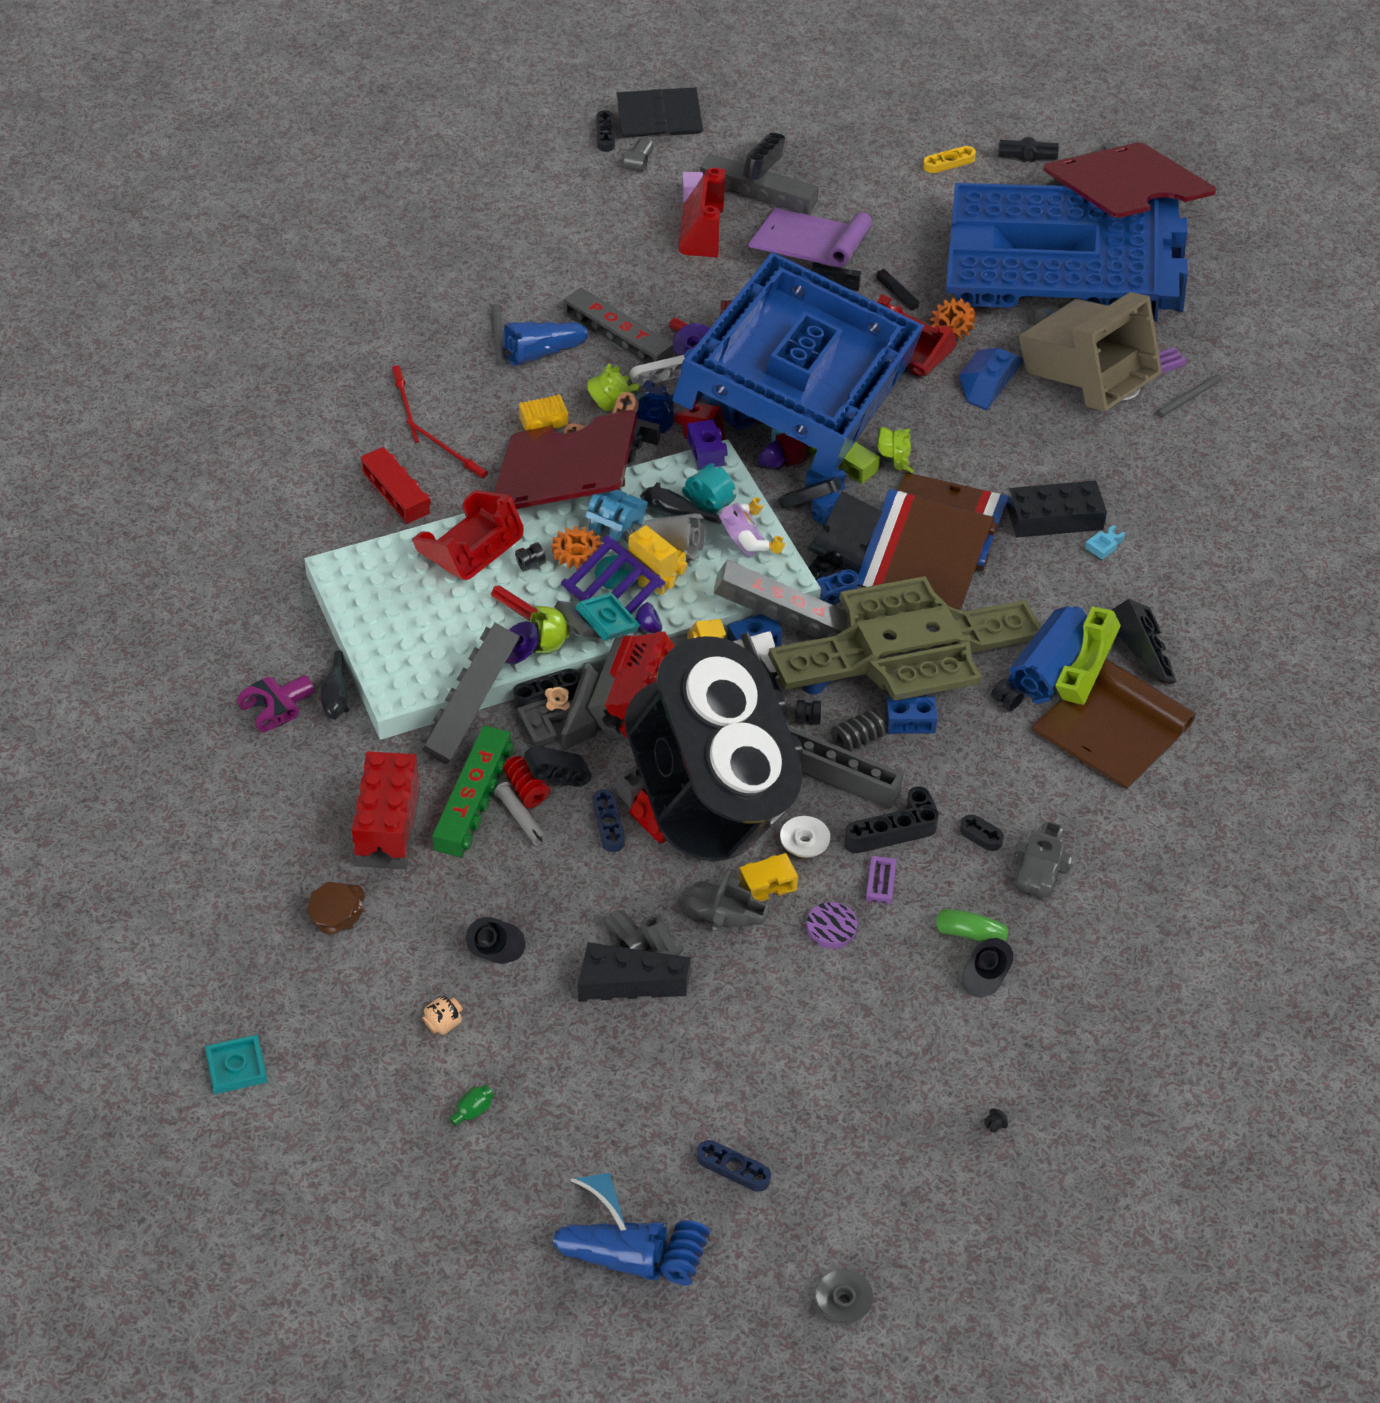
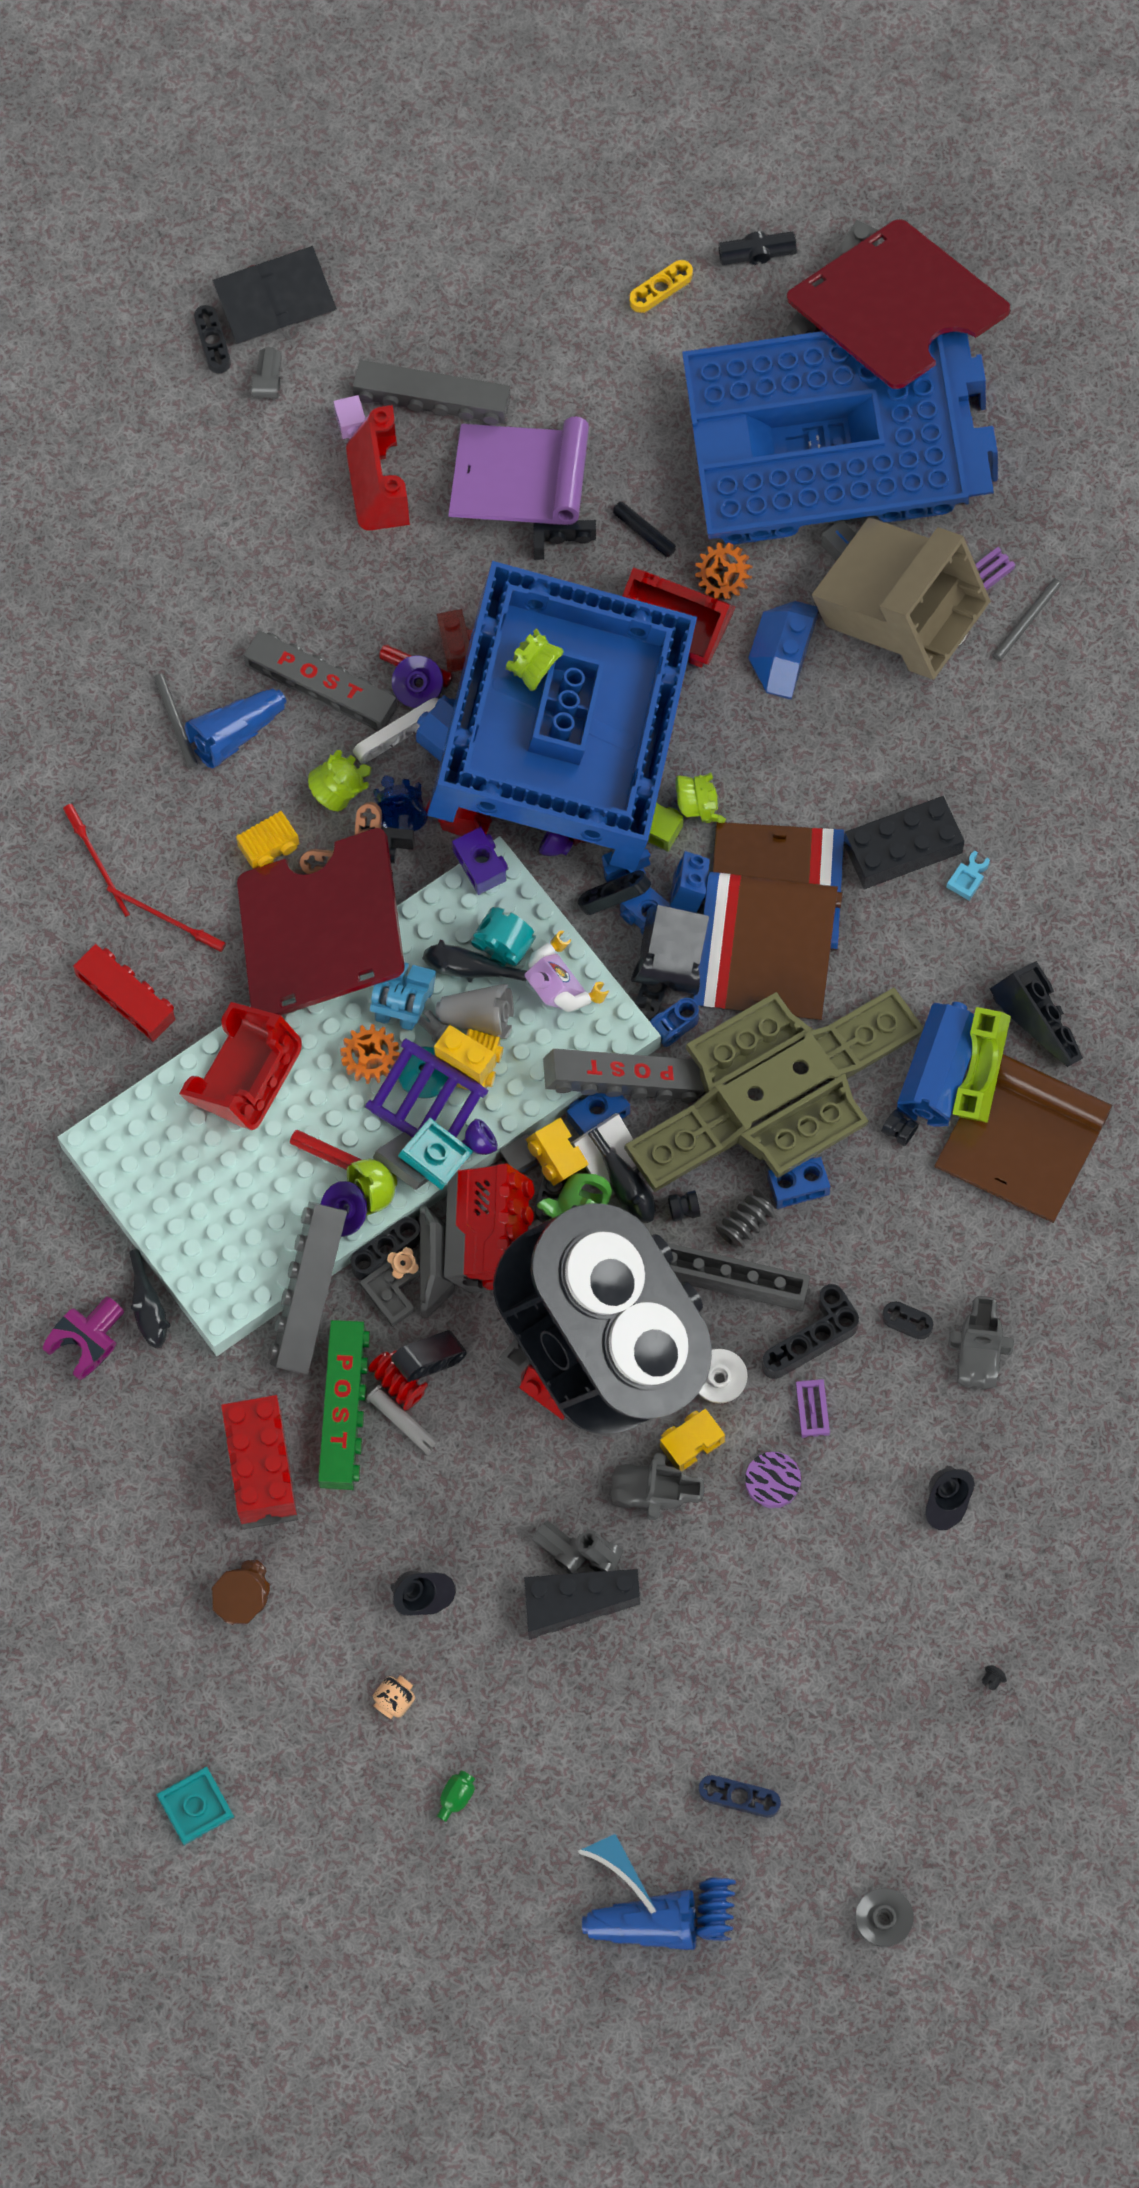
camera: 10 degrees left, 20 degrees up
(531, 556) = (321, 1080): black wheel -> none
(612, 812) = (499, 1383): dark blue beam -> none
(764, 156) = (430, 352): black beam -> none
(784, 311) = (533, 659): none -> lime hair
(875, 491) = (689, 882): none -> blue brick
(970, 925) = (923, 1450): bright green cylinder -> none

